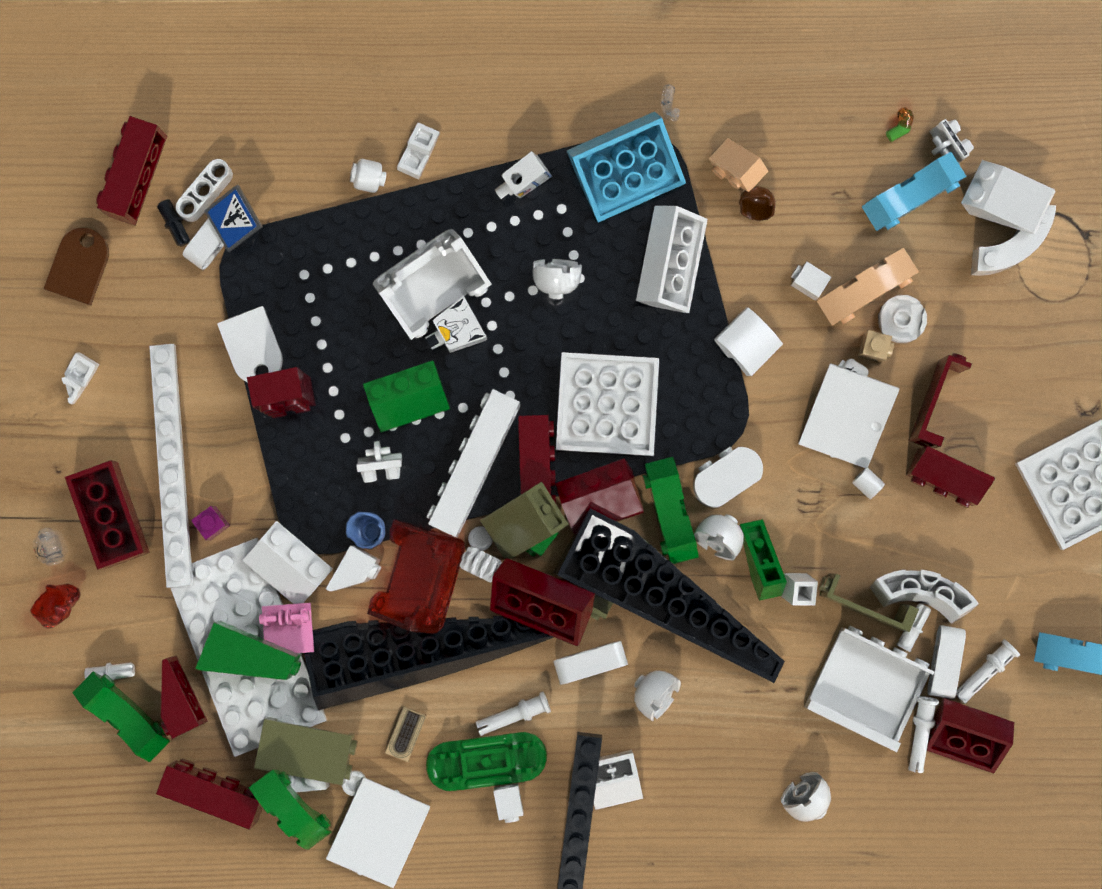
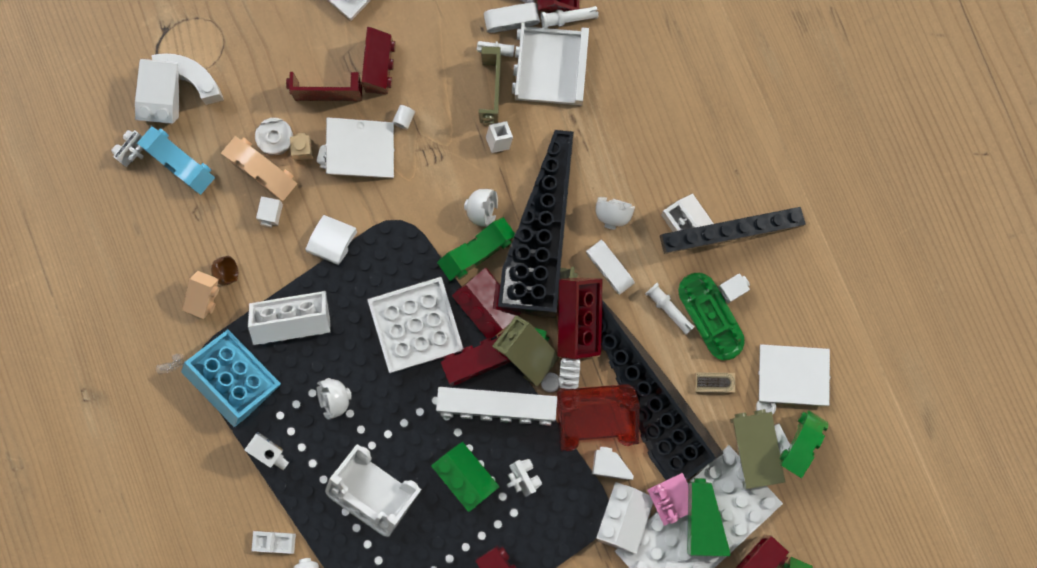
camera: 110 degrees left, 5 degrees down
(210, 793) = (817, 508): dark red brick -> none
(365, 529) = (577, 468): medium blue hair -> none
(456, 328) = (399, 458): white torso -> none
(727, 477) = (436, 218): white brick -> none
(762, 561) = (489, 170): green slope -> none
(807, 799) = (645, 77): white cylinder -> none
(904, 124) = (123, 186): arm -> none
(927, 588) = (464, 48): white brick -> none

